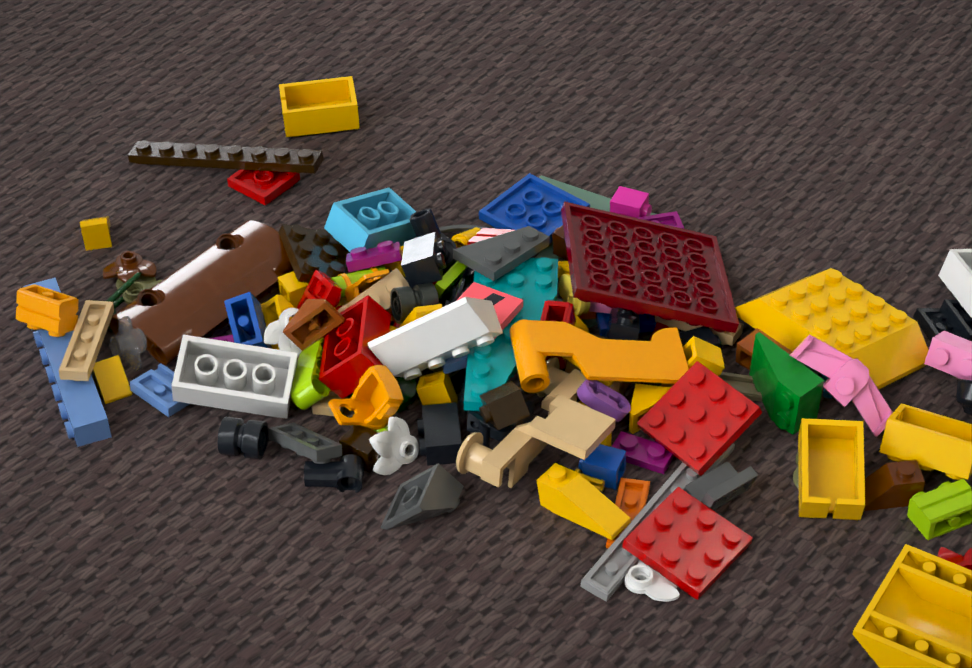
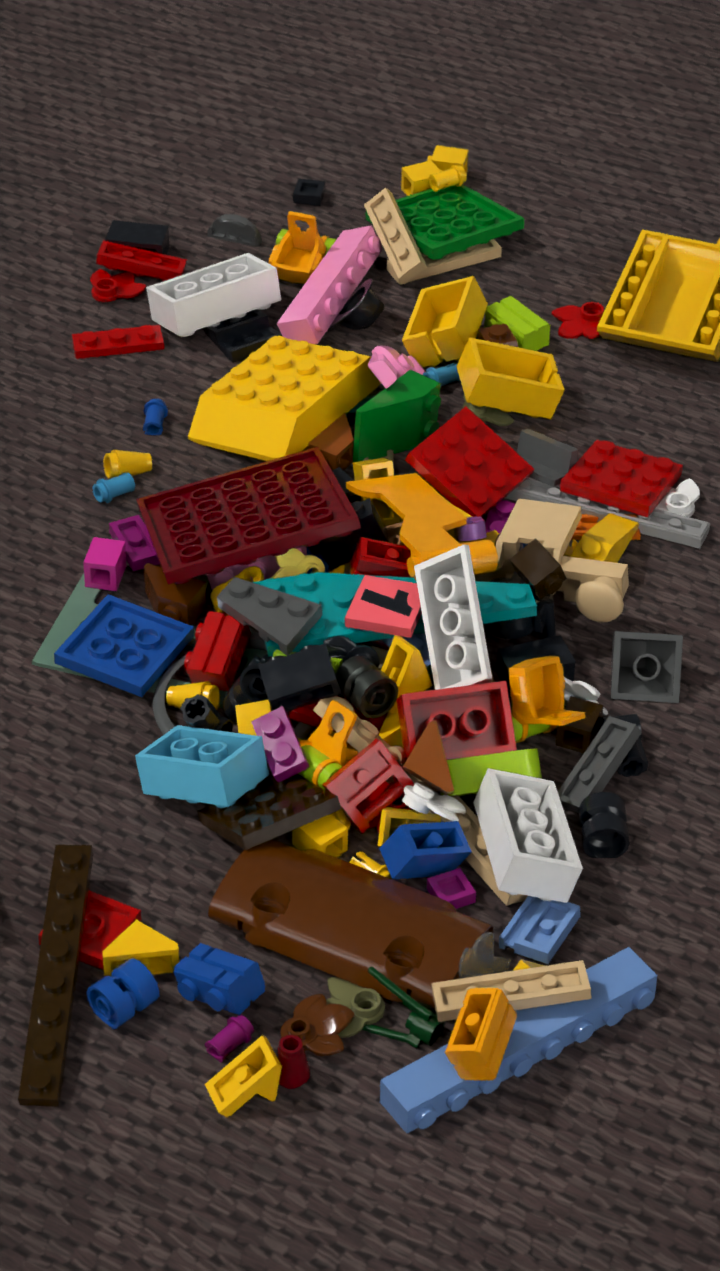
camera: 105 degrees left, 0 degrees up
(99, 249) = (292, 1057): none -> dark red cone
(143, 233) = (230, 1037): none -> magenta pin
(182, 221) = (219, 979): none -> blue brick
(193, 183) = (123, 993): none -> blue wheel
(229, 196) = (145, 945): none -> yellow slope
(733, 223) = (107, 489): none -> dark azure pin
(764, 234) = (126, 462): none -> yellow cone
(829, 258) = (155, 412): none -> blue pin
(872, 446) = (444, 374): none -> dark azure pin
(943, 238) = (117, 341): none -> red plate

